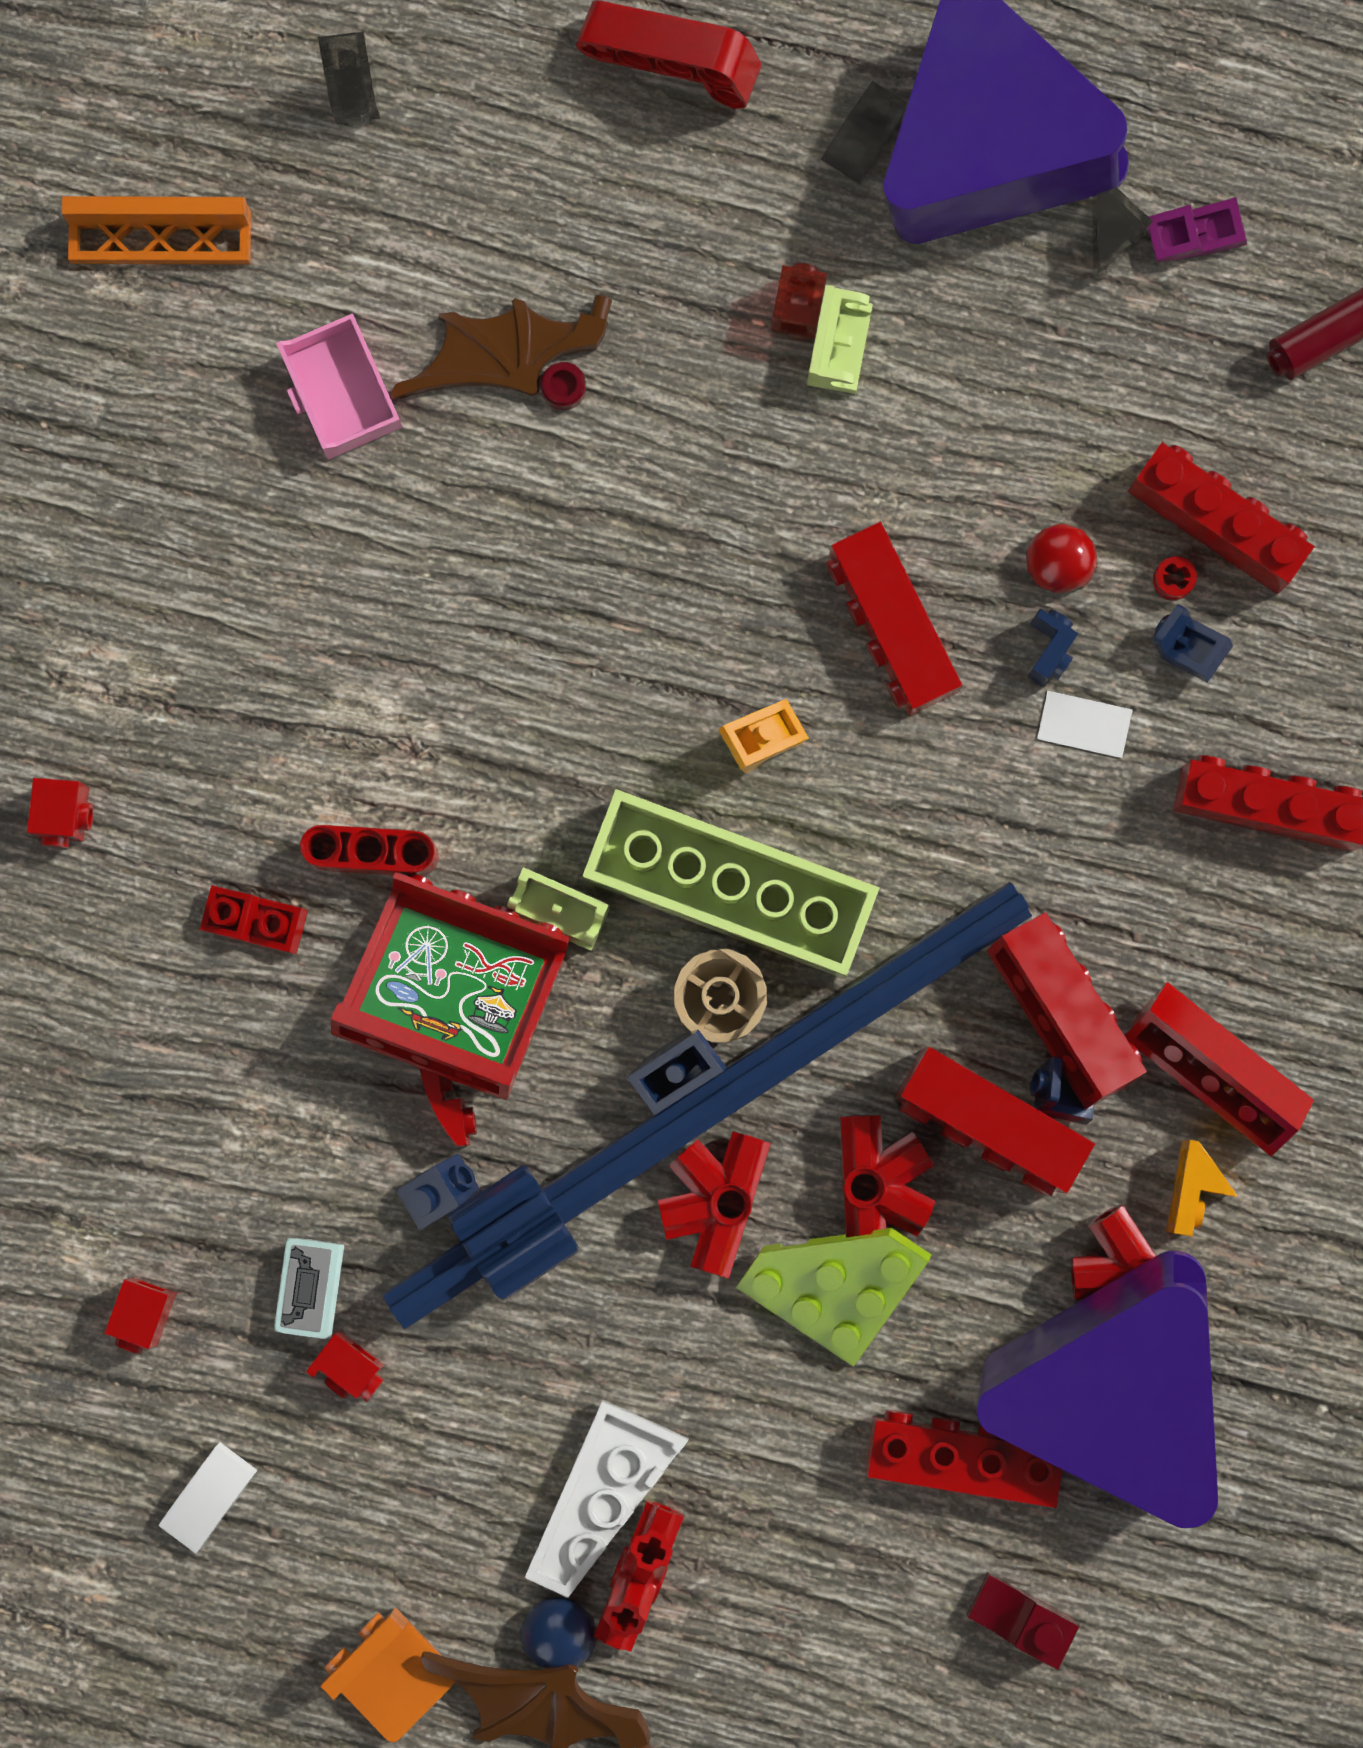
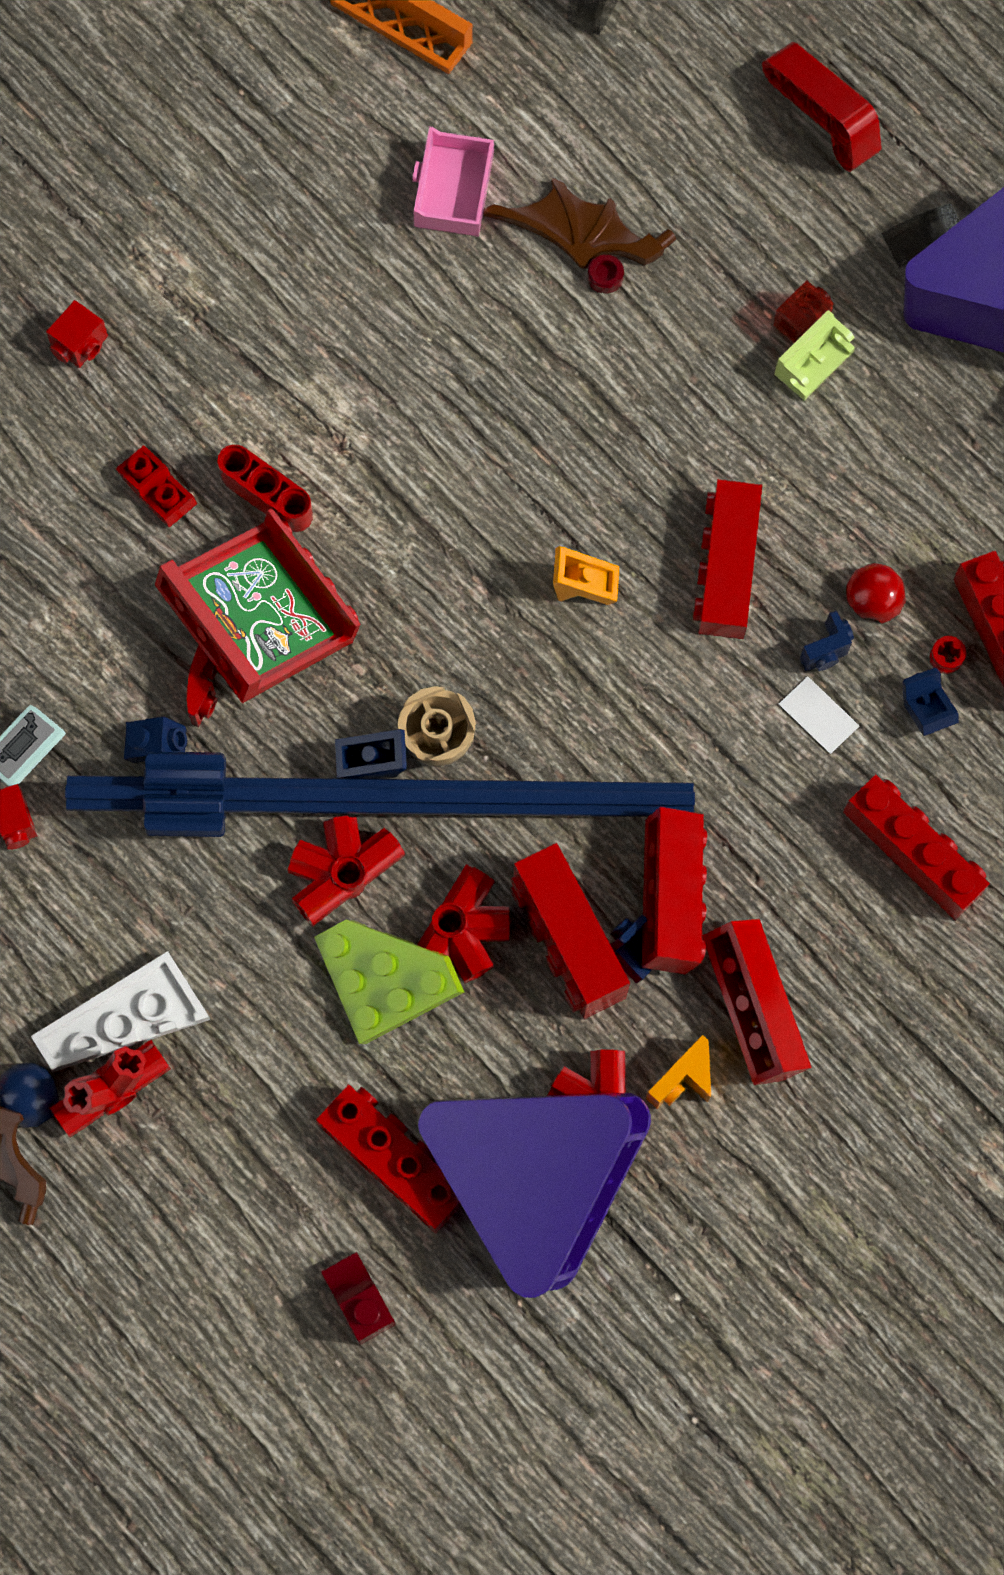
camera: 30 degrees right, 10 degrees down
(550, 902) = (374, 610): yellowish green hinge -> none
(730, 884) = (495, 660): yellowish green brick -> none

